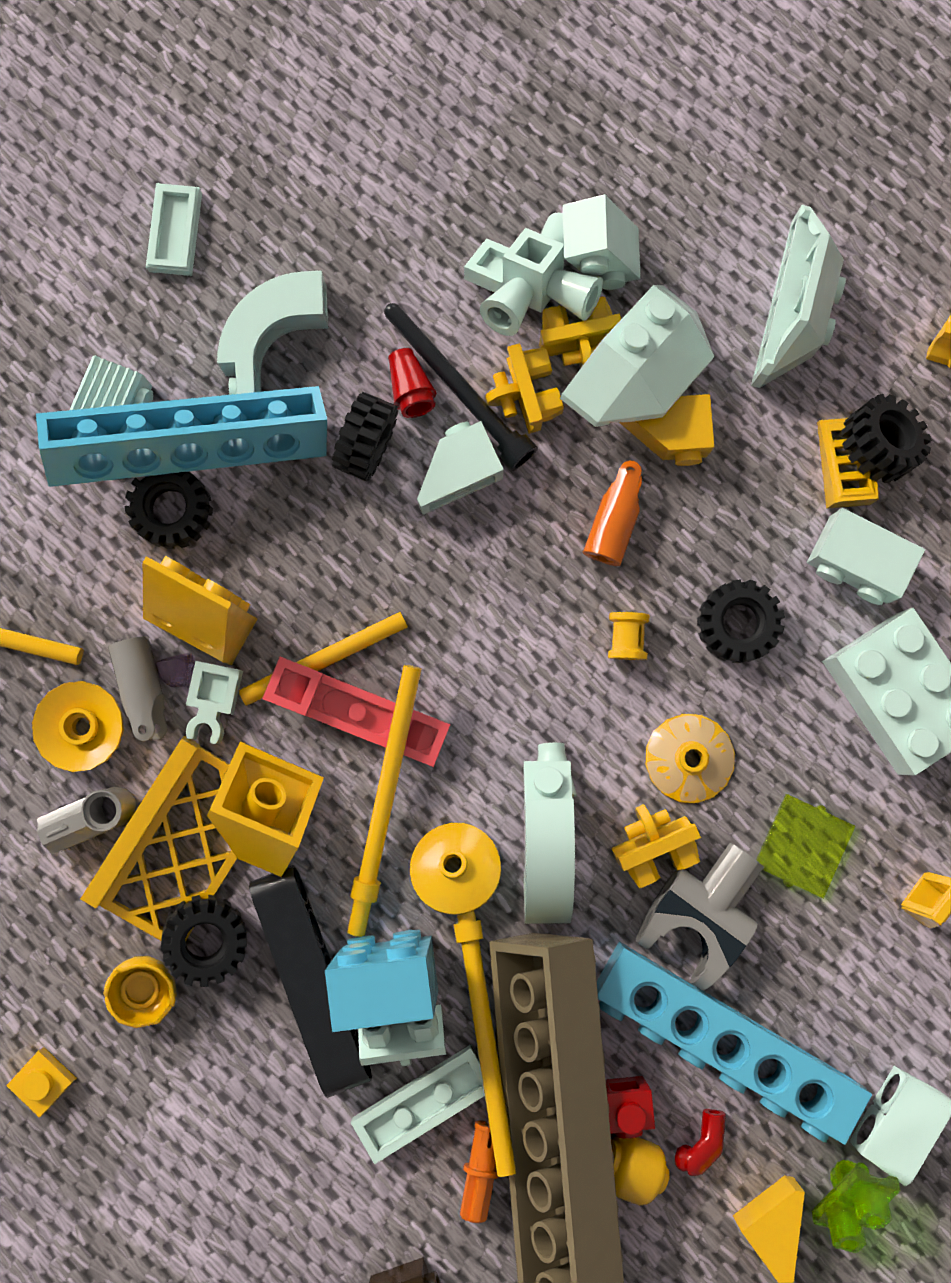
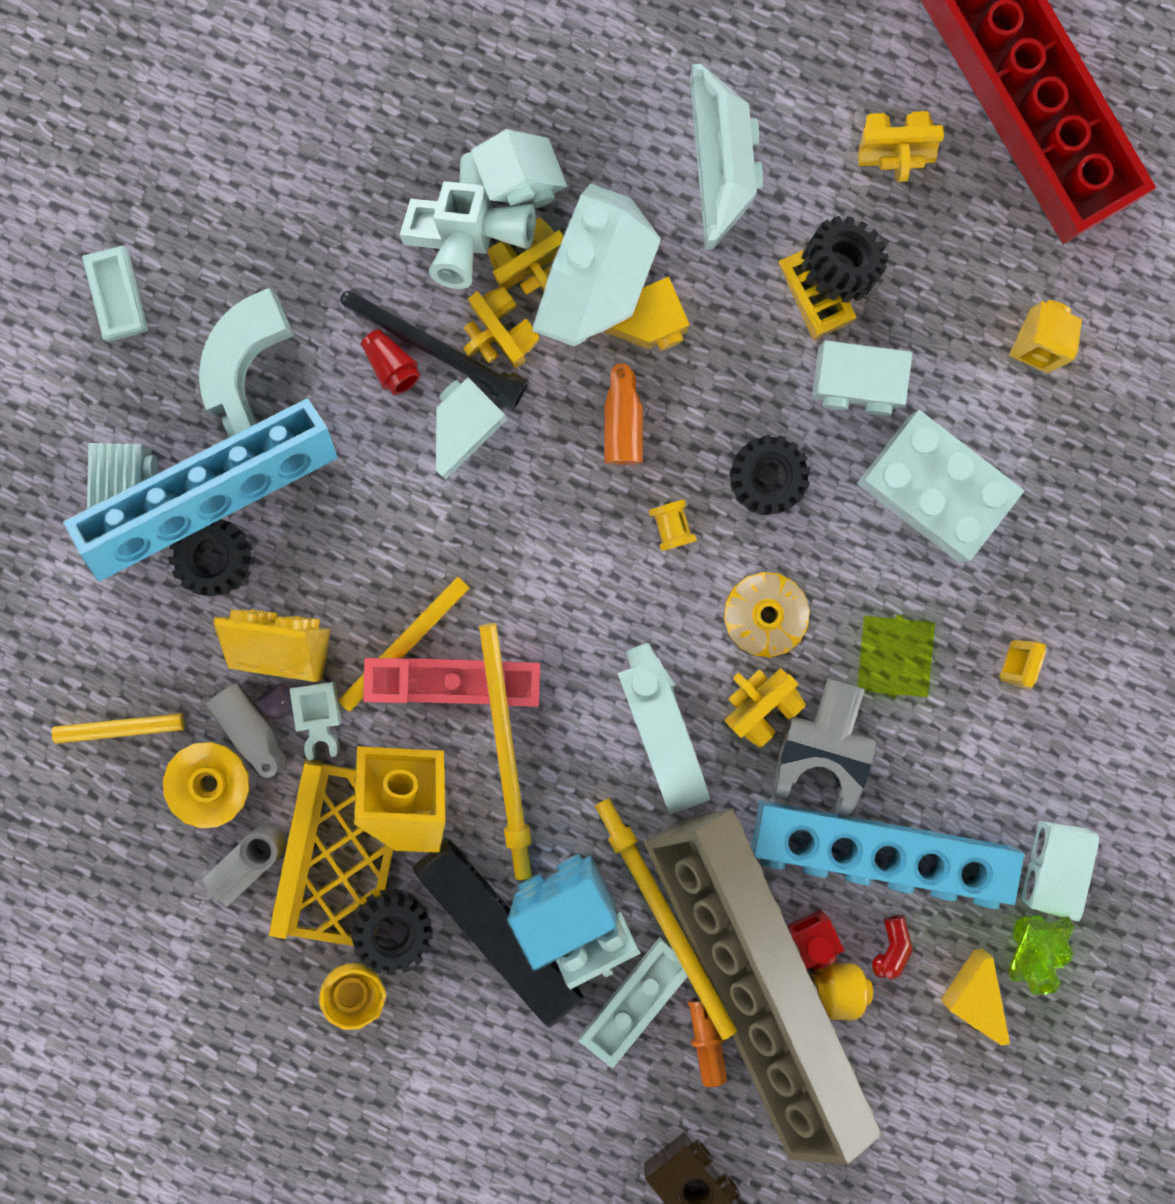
camera: 20 degrees left, 5 degrees up
(41, 1082) = (294, 1104): yellow plate -> none
(364, 436) = (366, 429): black tyre -> none
(471, 884) = (611, 794): yellow dish -> none

